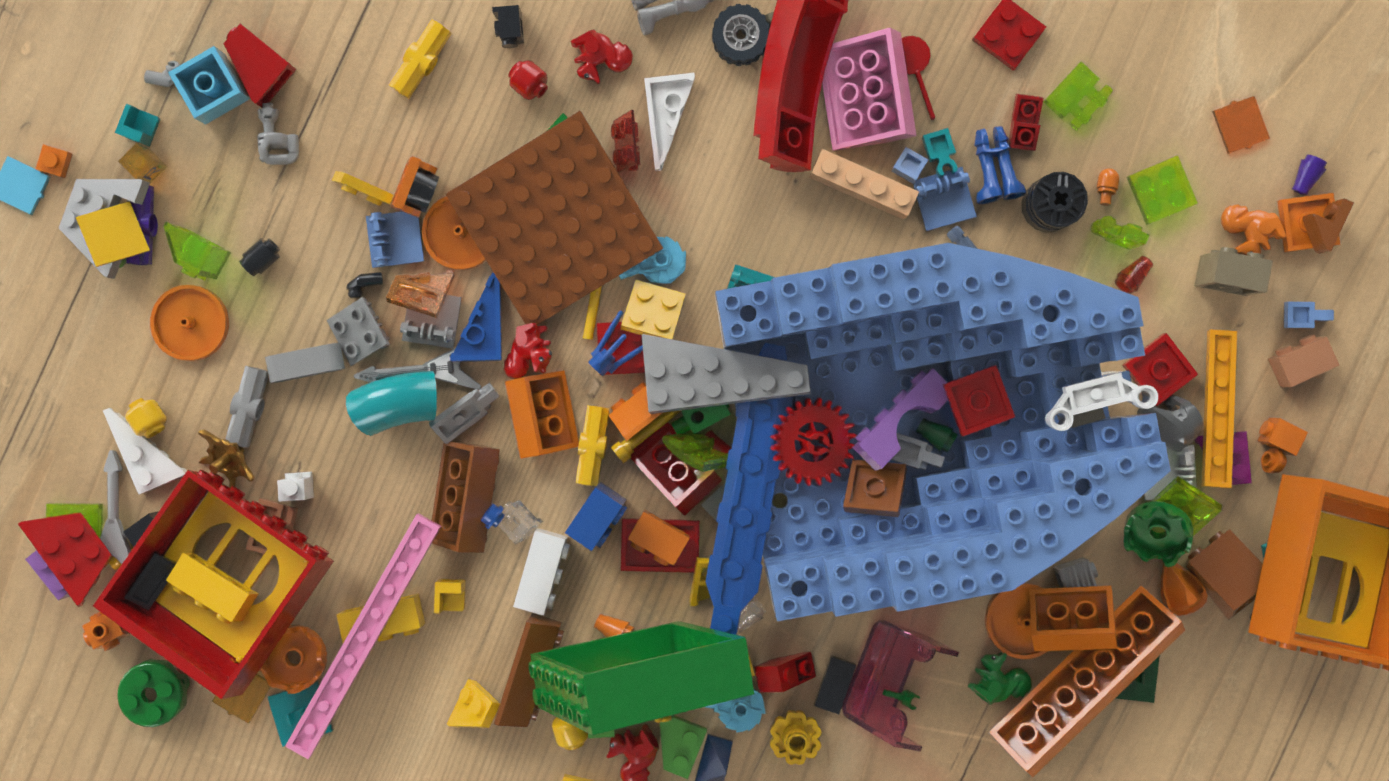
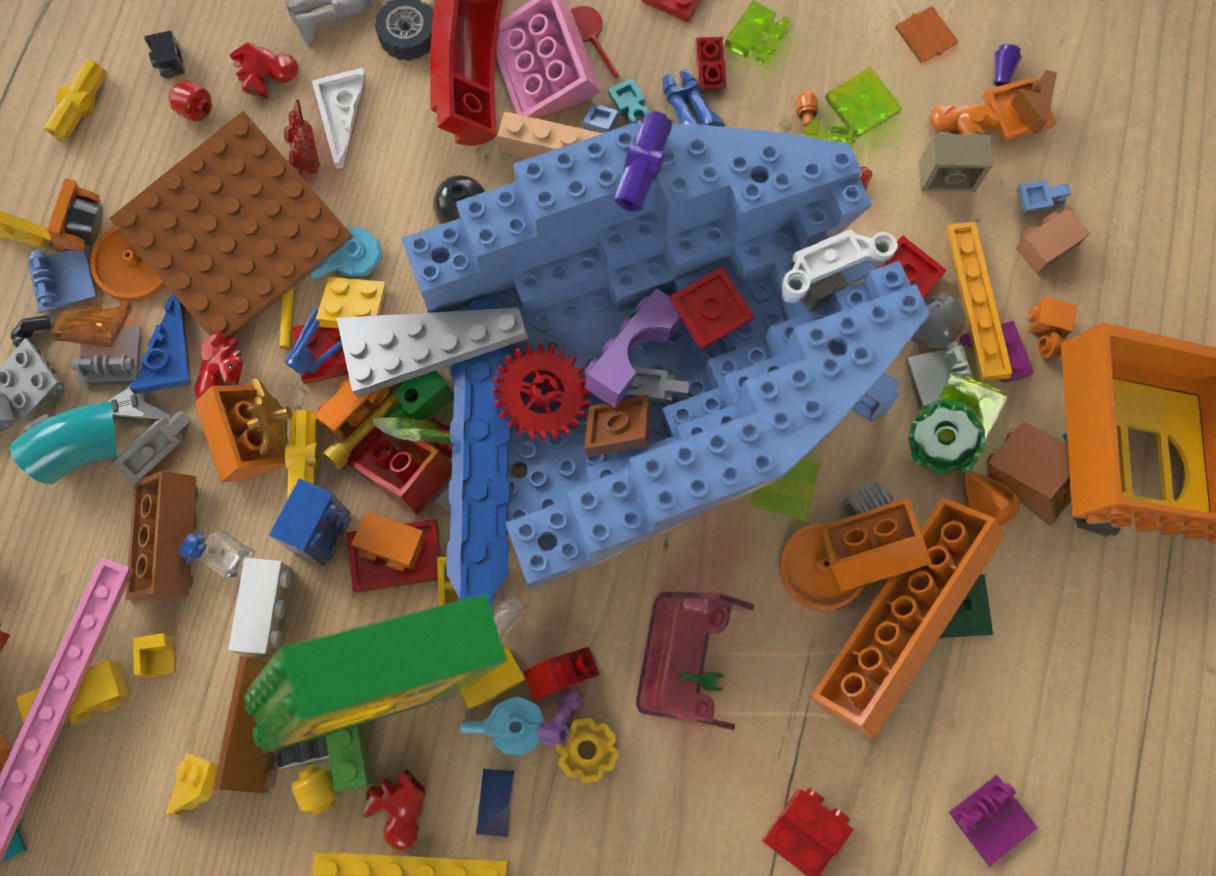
camera: 15 degrees left, 15 degrees down
(570, 412) = (269, 418): none -> pearl gold piece
(680, 745) = (451, 785): bright green wing -> none
(765, 228) = (451, 191): none -> black cylinder
(771, 721) = (557, 731): none -> medium lavender bar
(835, 684) = (623, 680): black tile -> none
(937, 434) = (678, 362): dark green cone -> none
(950, 290) = (643, 161): none -> dark purple piece
(996, 685) = (807, 644): green animal -> none
(1039, 203) = (757, 111): black wheel -> none

